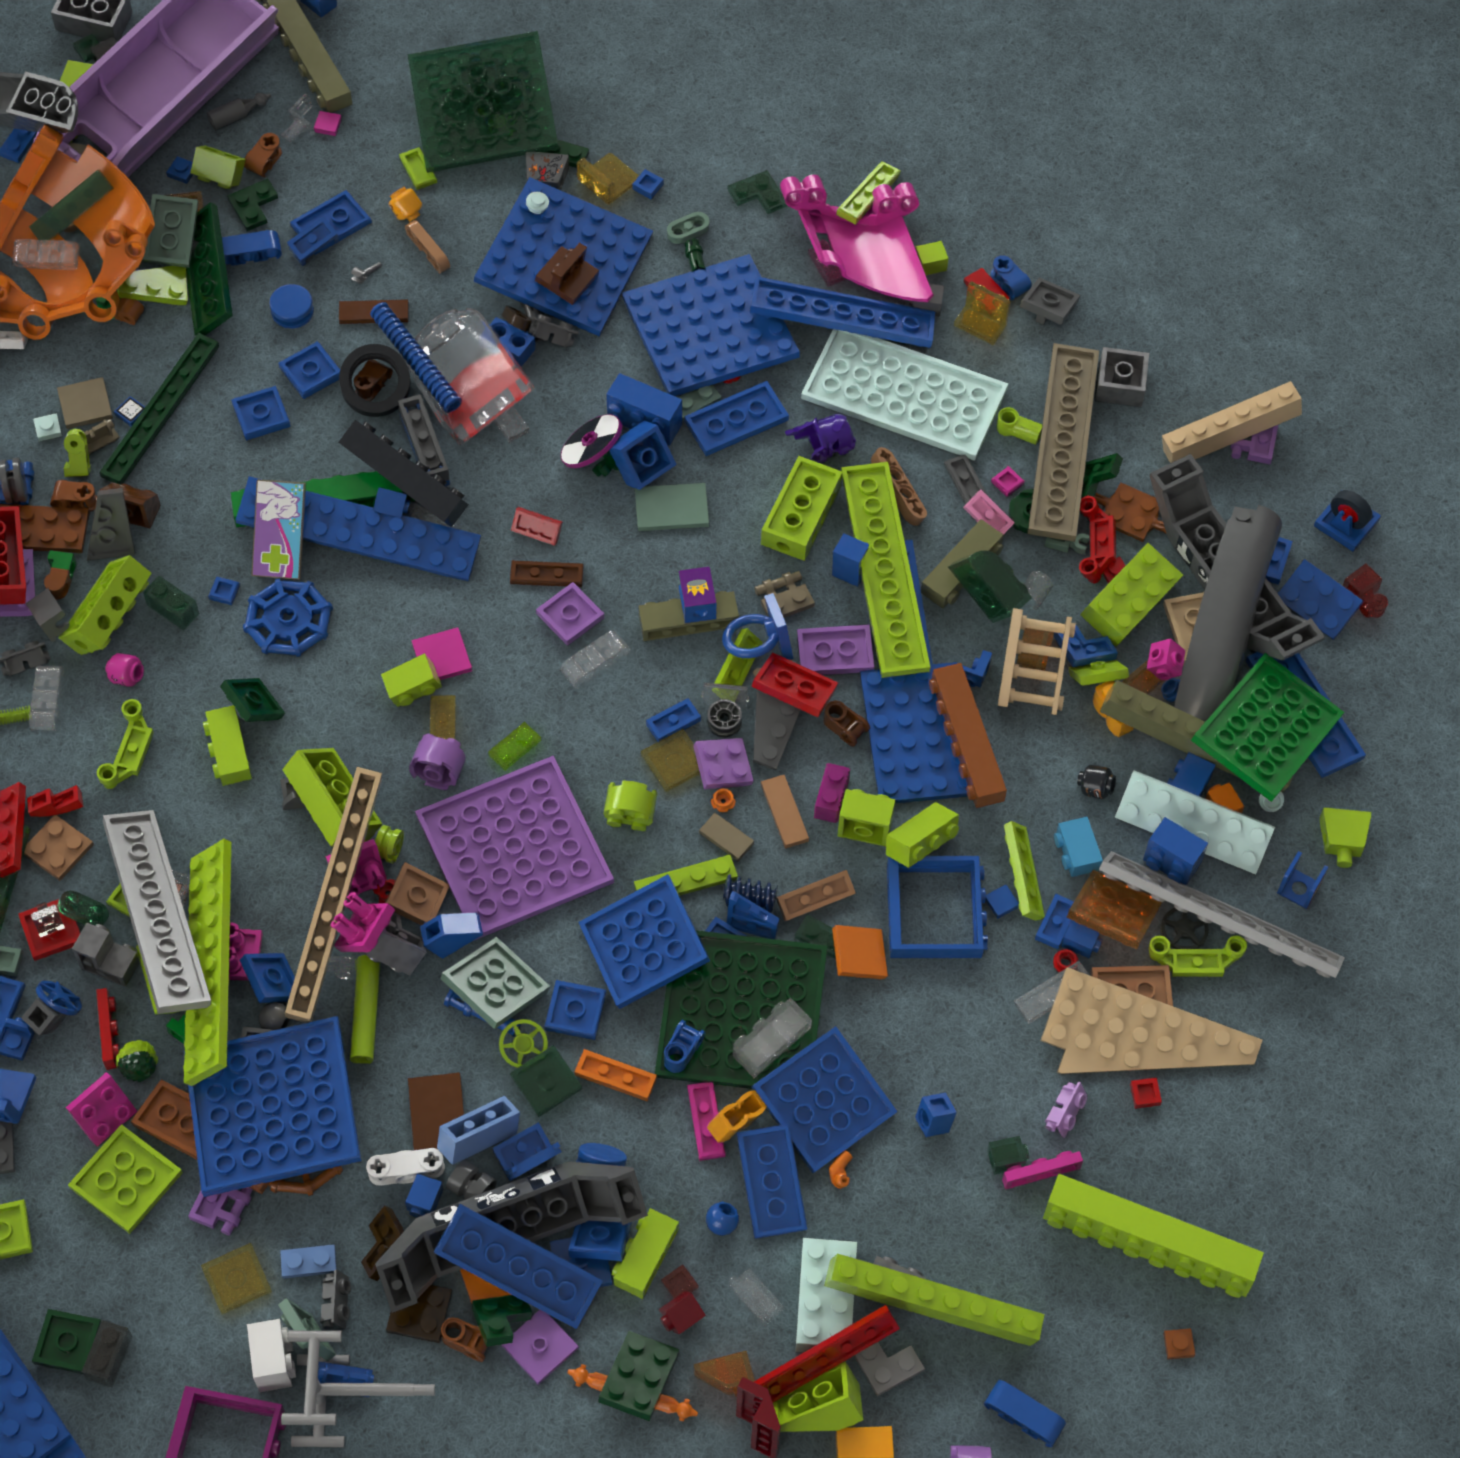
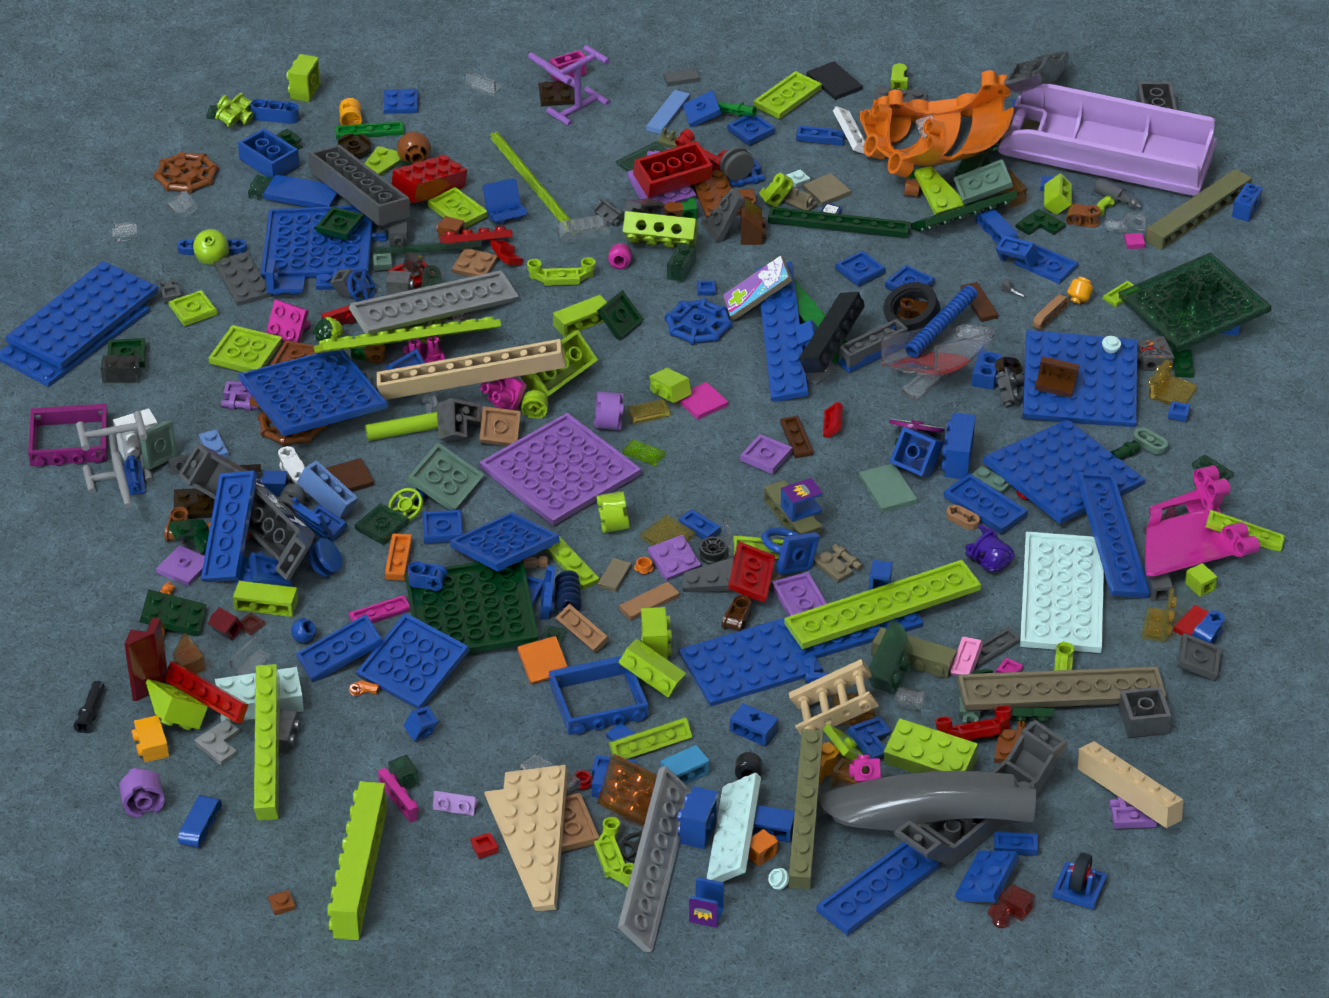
camera: 75 degrees right, 20 degrees down
(71, 206) = (970, 126): clear green tile -> none
(236, 1278) = (191, 416): clear yellow tile -> none
(245, 129) = (1106, 201): none -> lime arm
(291, 306) = (959, 260): blue head -> none
(364, 926) = (445, 390): dark pink plate -> none
(450, 932) = (474, 446): blue slope -> none
(594, 658) = (733, 473): clear beam -> none
(736, 1116) = (380, 614): light orange brick -> none
(749, 447) = (962, 517): none -> medium nougat beam
(771, 1037) = (450, 619): clear brick -> none
(801, 508) = (916, 548): lime brick -> none
(831, 792) = (680, 617): magenta brick -> none
(910, 507) = (970, 605): medium nougat beam -> none
(968, 735) = (751, 677): dark orange brick -> none
(1040, 753) = (754, 724): none -> blue brick
(1267, 727) = (830, 842): green plate -> none
(1344, 833) = (764, 928): lime torso -> none

